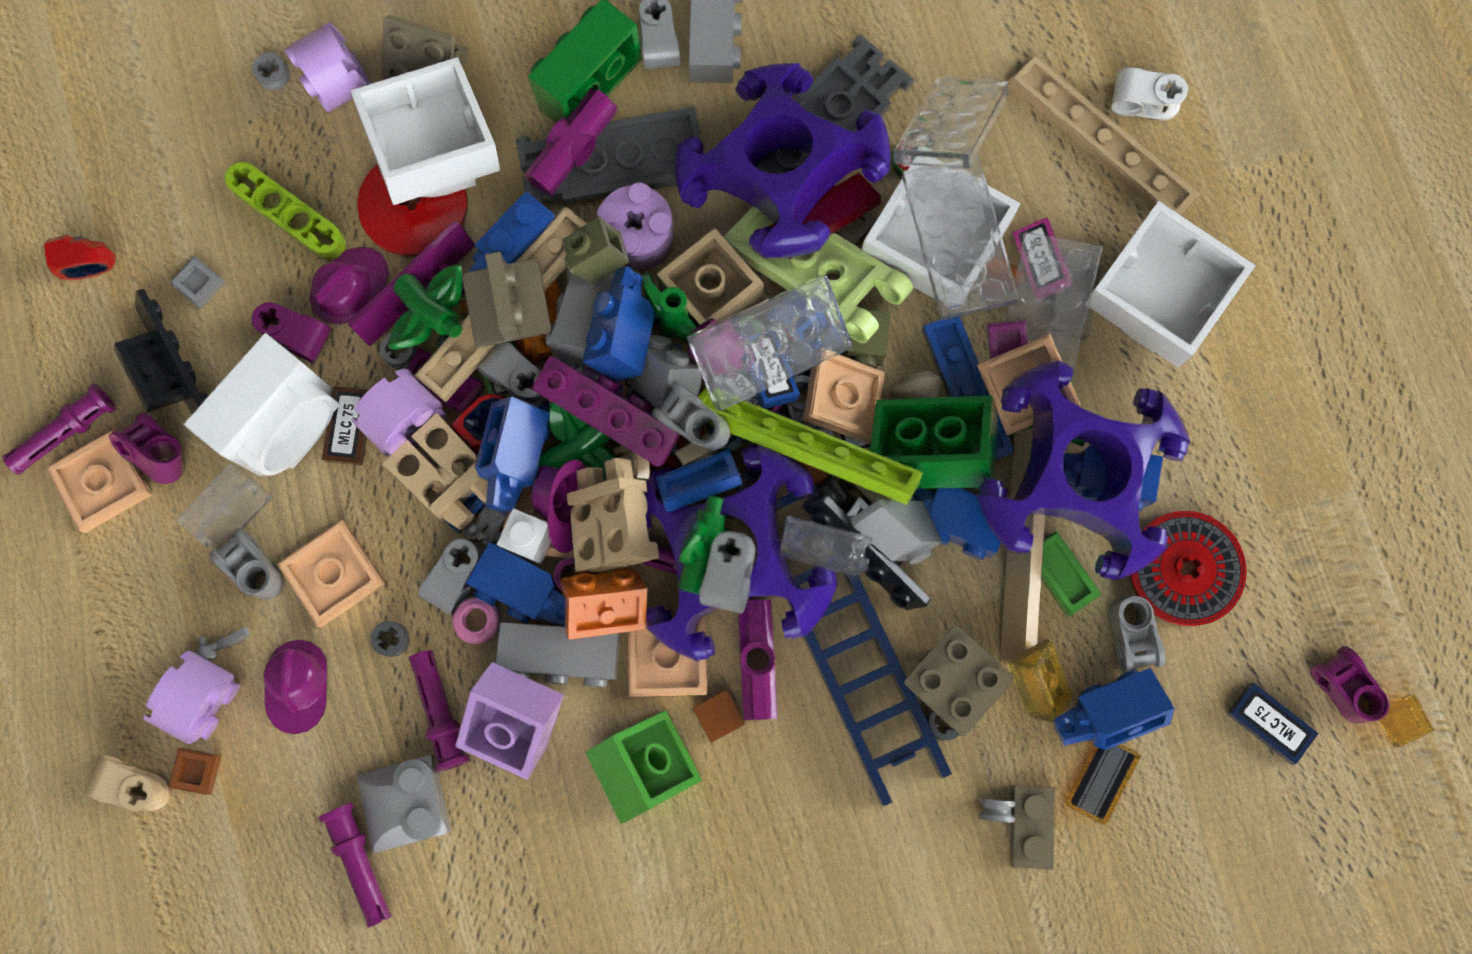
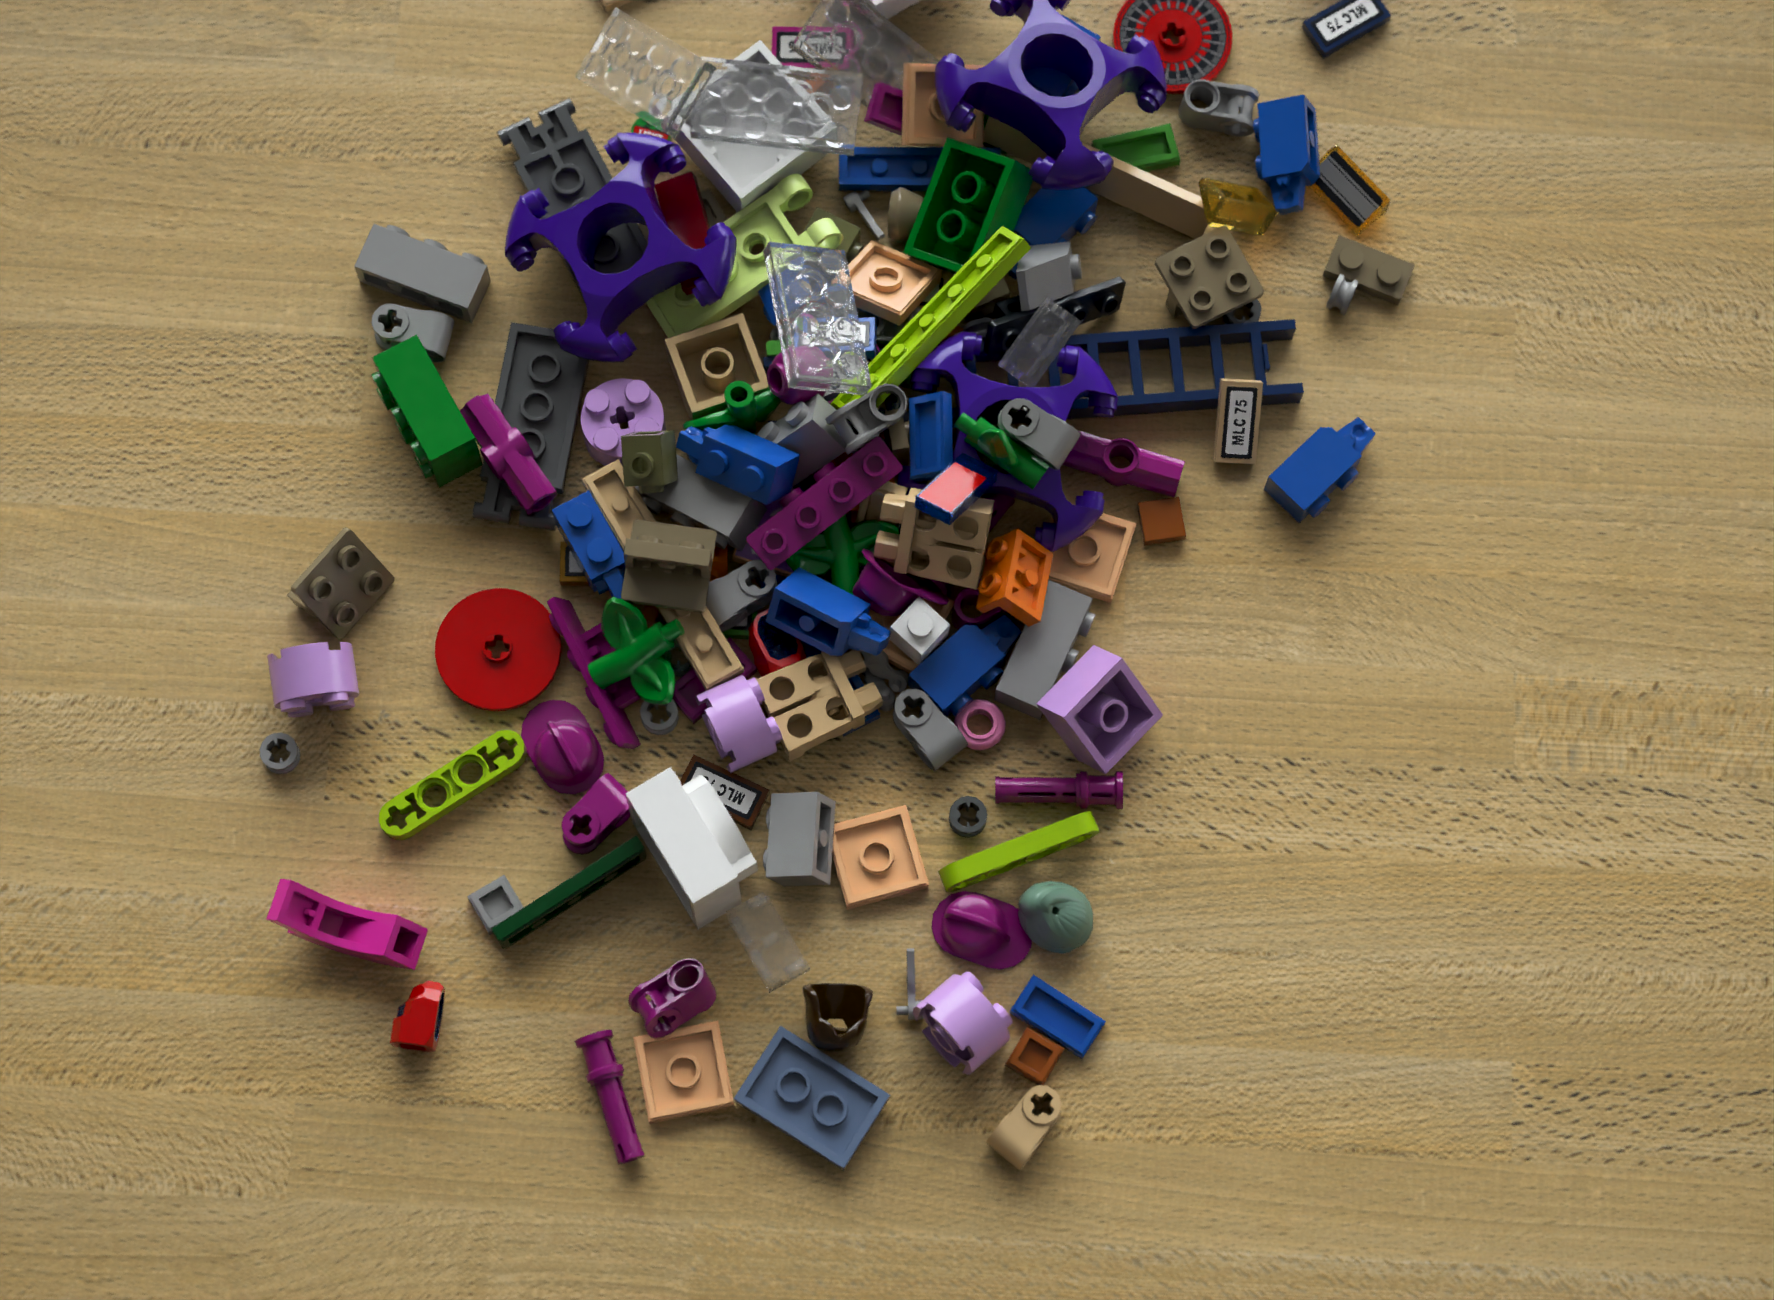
camera: 75 degrees left, 5 degrees down
(101, 593) = (811, 1098): none -> sand blue plate
(137, 181) = (346, 928): none -> dark pink arch
(155, 364) = (581, 964): black bracket -> none
(159, 591) = (836, 1001): none -> dark brown hair
(200, 320) = (569, 892): none -> dark green tile
(236, 779) = (1057, 1017): none -> blue tile
(243, 561) = (836, 936): light grey piece -> none
(317, 503) = (799, 839): none -> light grey brick
(321, 746) = (1056, 916): none -> sand green hair
(348, 845) = (1166, 917): magenta pin -> none
(369, 694) = (1018, 851): none -> lime beam
(403, 803) = (1141, 854): light grey slope -> none
(426, 131) = (439, 592): white container -> none
(643, 766) = (1187, 607): bright green slope -> none
(645, 517) = (956, 488): none -> tile
(819, 846) = (1318, 468): none -> blue hinge
(833, 754) = (1238, 421): none -> tile
(915, 346) = (854, 202): none -> light grey piece

